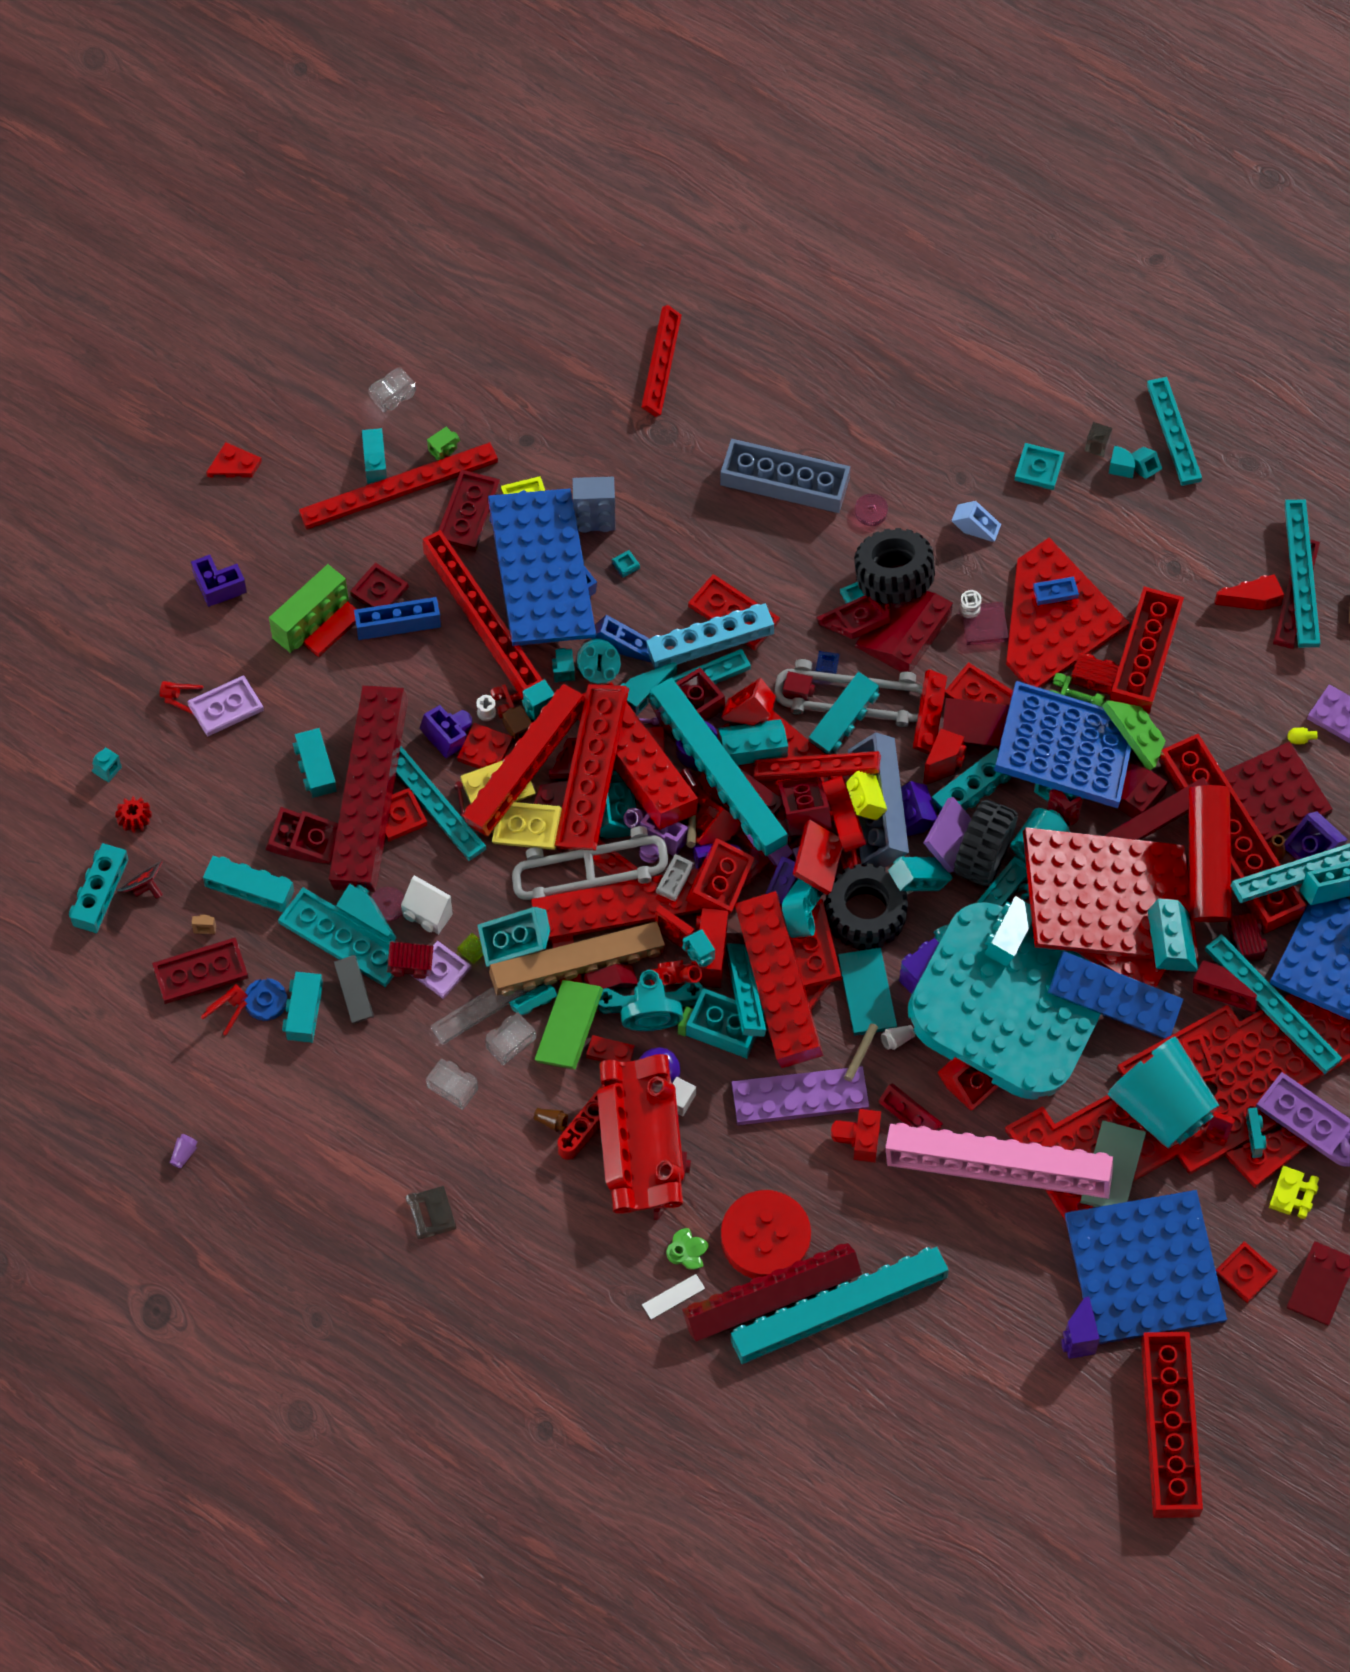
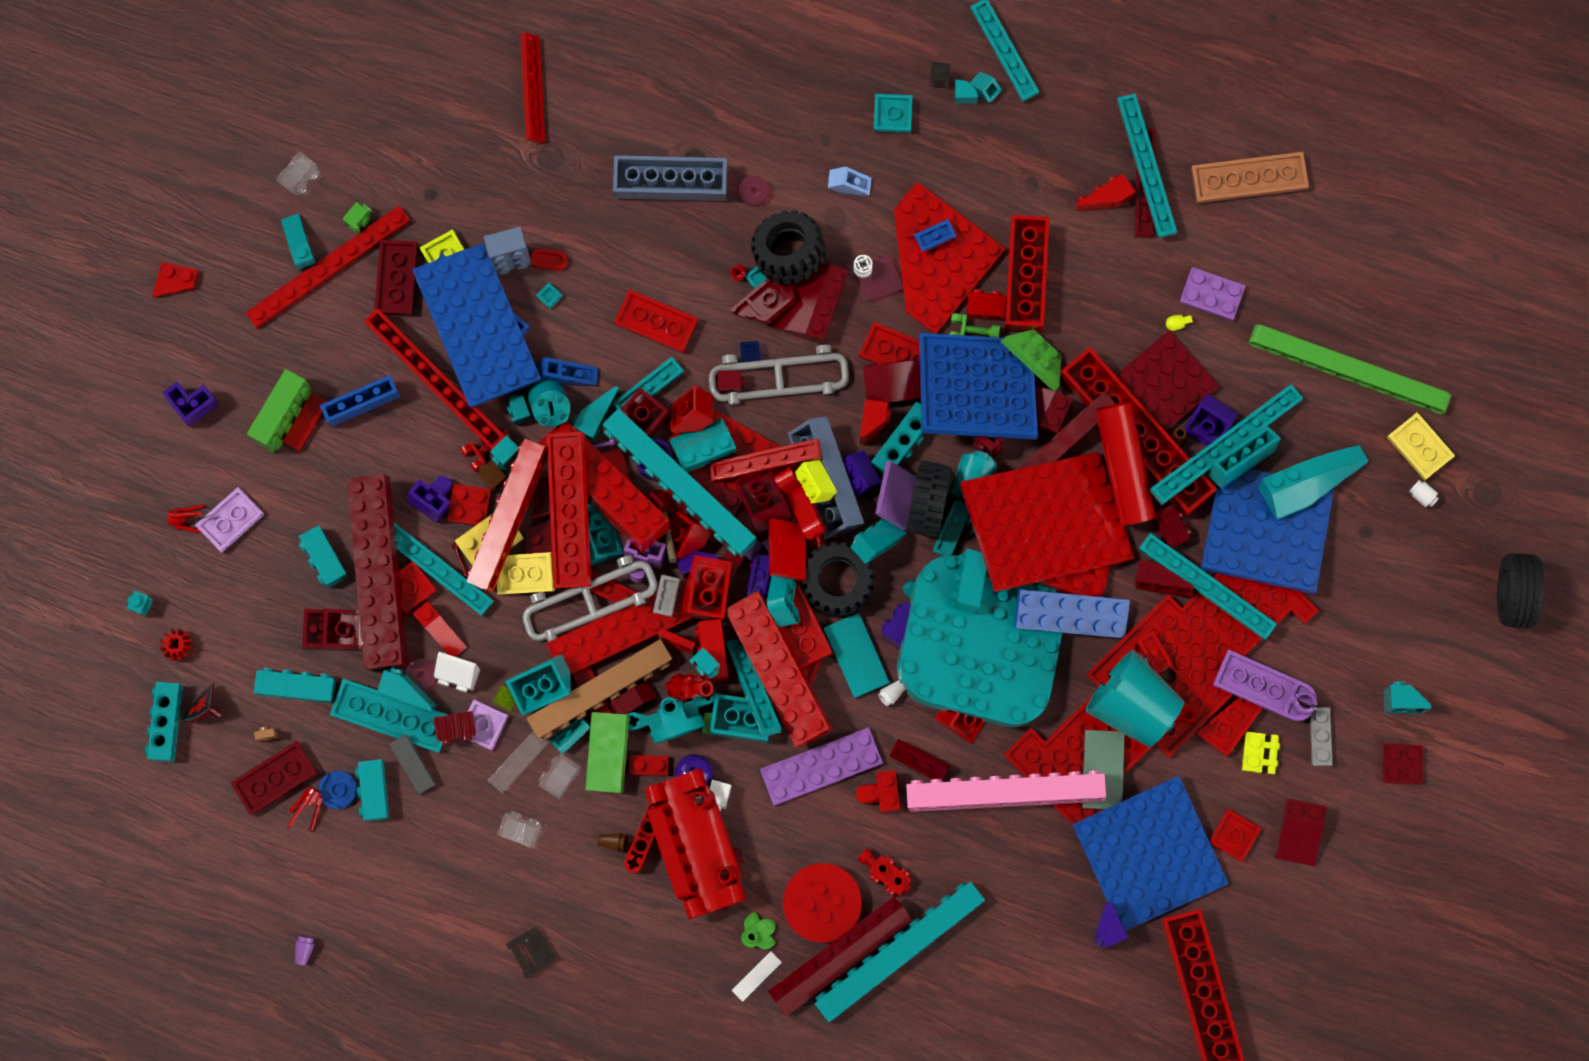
camera: 10 degrees left, 15 degrees up
(378, 587) = (336, 373): dark red plate -> none
(417, 857) = (439, 630): none -> red slope
(488, 702) = (465, 470): white bush -> none
(633, 817) = (617, 544): medium lavender cone -> none
(634, 529) = (548, 259): none -> red tile
(703, 645) = (669, 343): medium azure brick -> none
(831, 581) = (734, 270): none -> red hinge
(844, 713) = (776, 400): teal brick -> none
(844, 1222) = (888, 876): none -> red brick
(860, 1052) = (864, 716): dark tan bar -> none
(929, 711) = (850, 378): red plate -> none
(1172, 936) = (1108, 547): teal slope -> none
(1254, 1126) = (1215, 702): teal plate -> none

